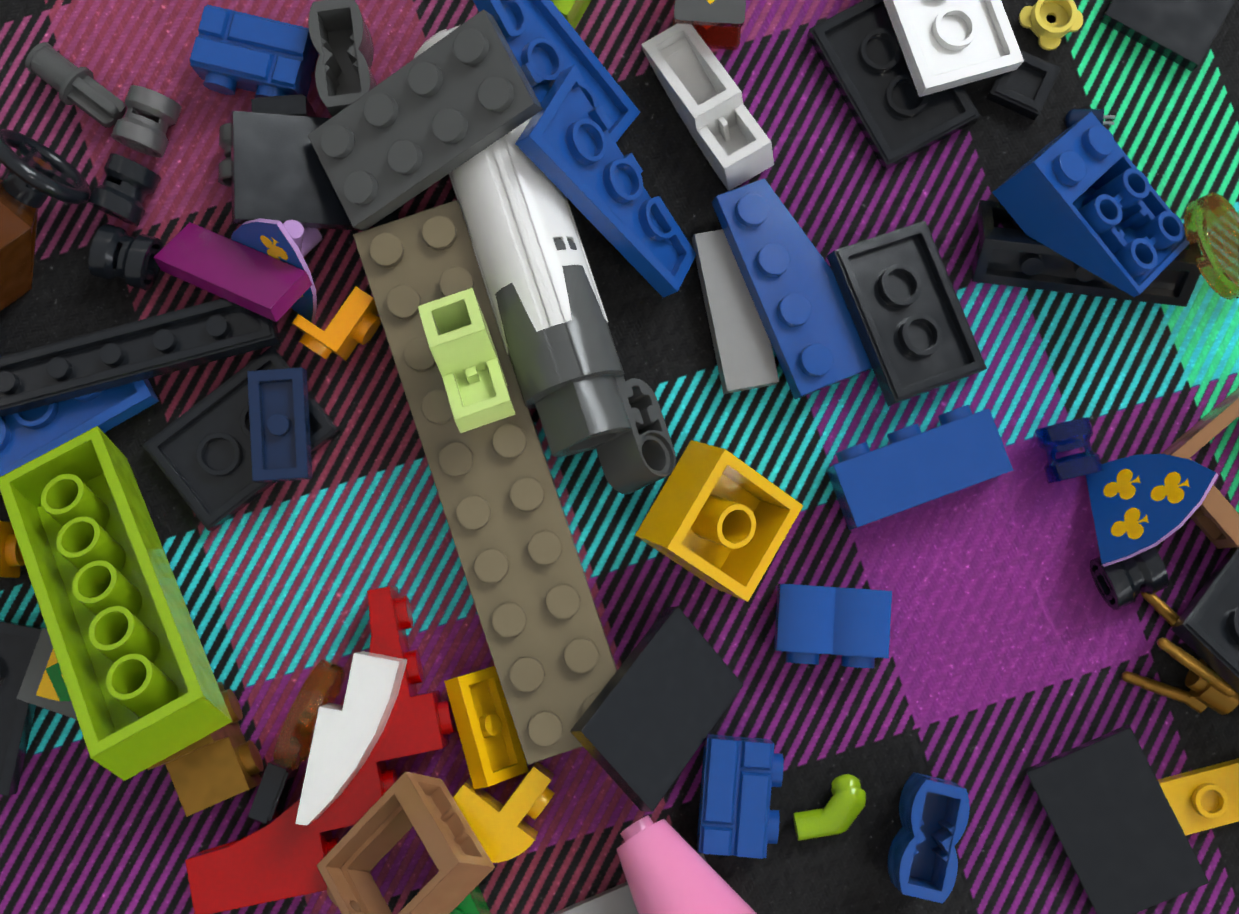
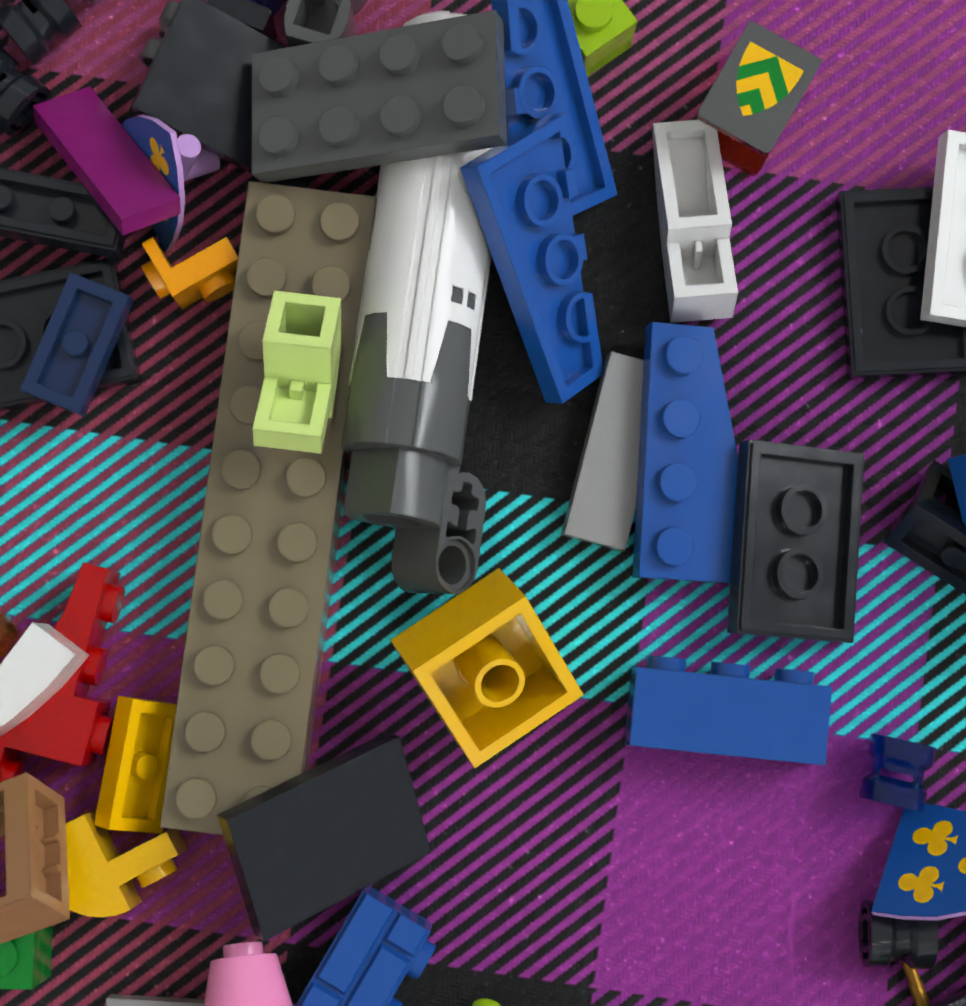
camera: 20 degrees right, 0 degrees up
(833, 623) = (556, 833): blue brick -> none

